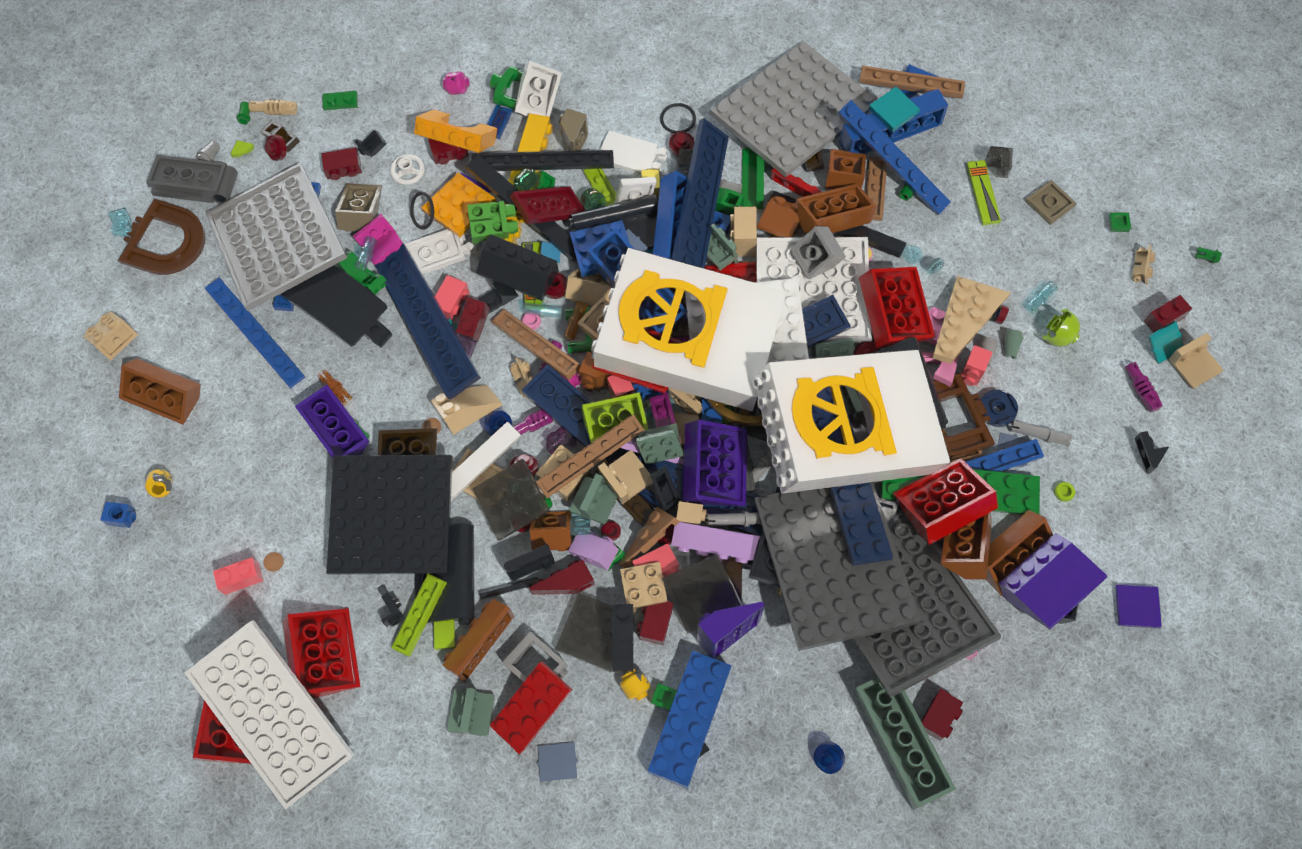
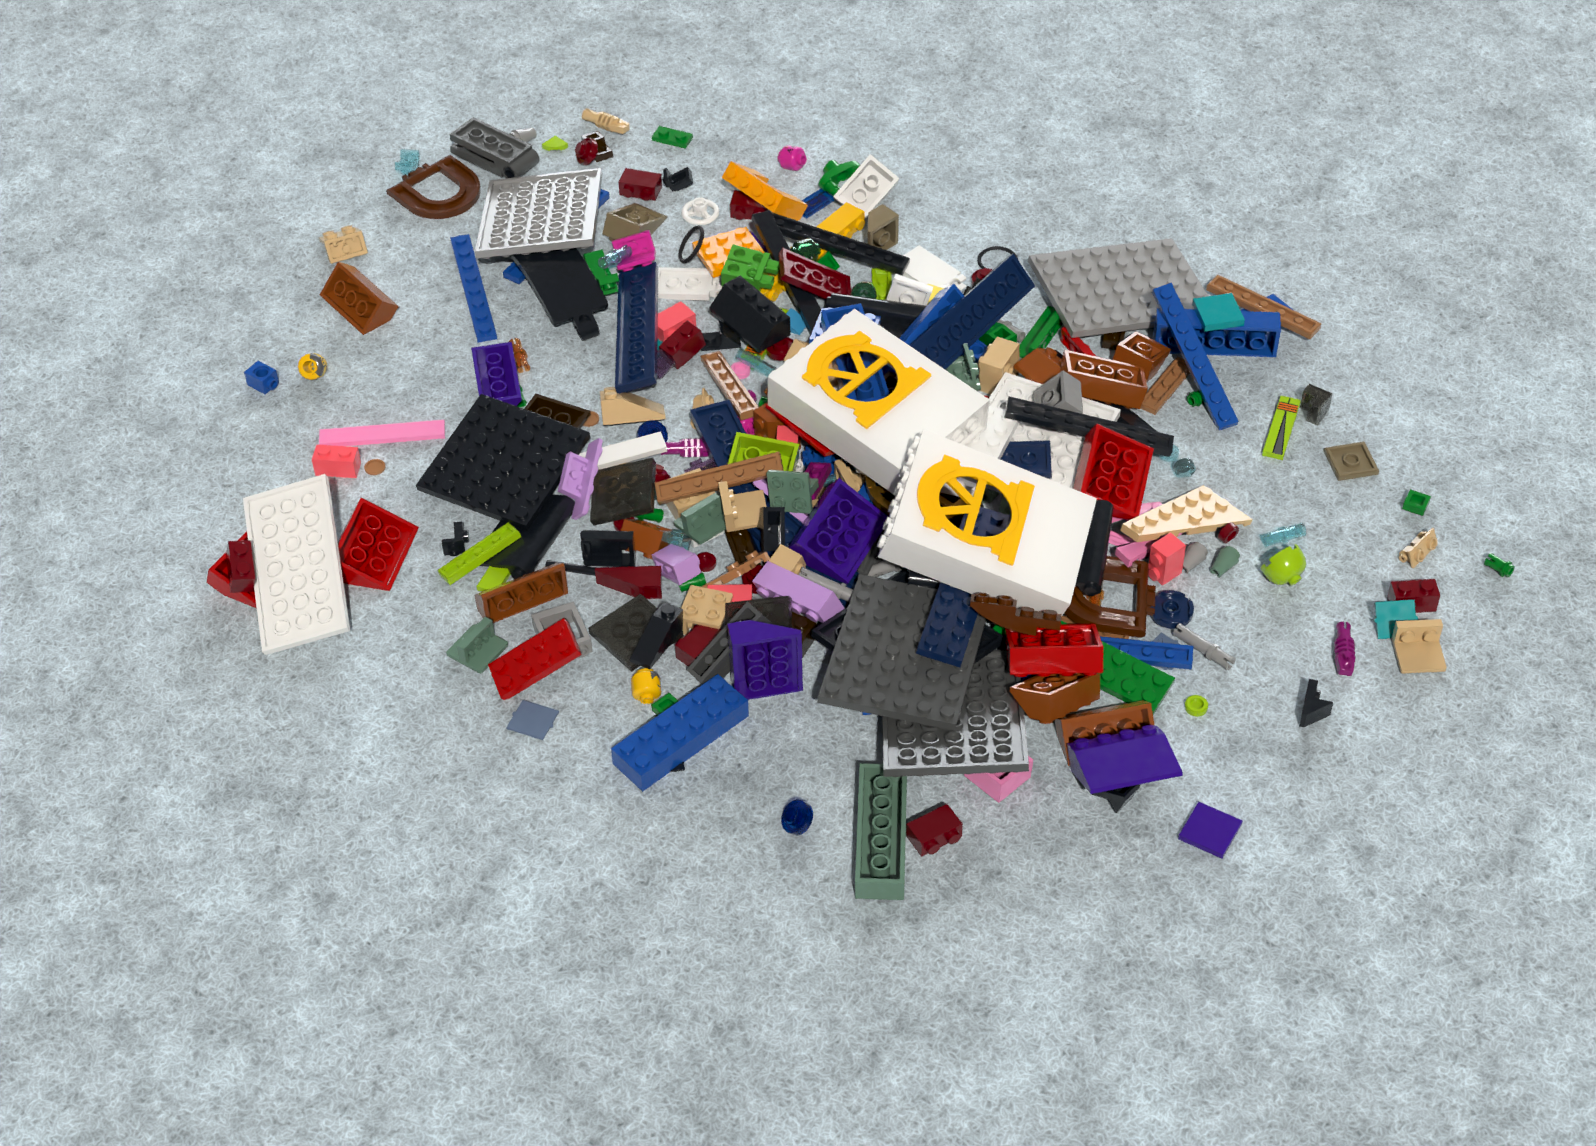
camera: 25 degrees right, 20 degrees down
(221, 742) = (240, 566): none -> dark red brick
(244, 112) = (574, 118): green pin -> none
(260, 524) = (383, 433): none -> bright pink tile
(466, 502) = (578, 477): none -> lavender bracket
(687, 624) = (715, 656): none -> dark grey brick
(854, 268) = (1081, 424): none -> black plate
(906, 491) = (1004, 613): none -> reddish brown slope

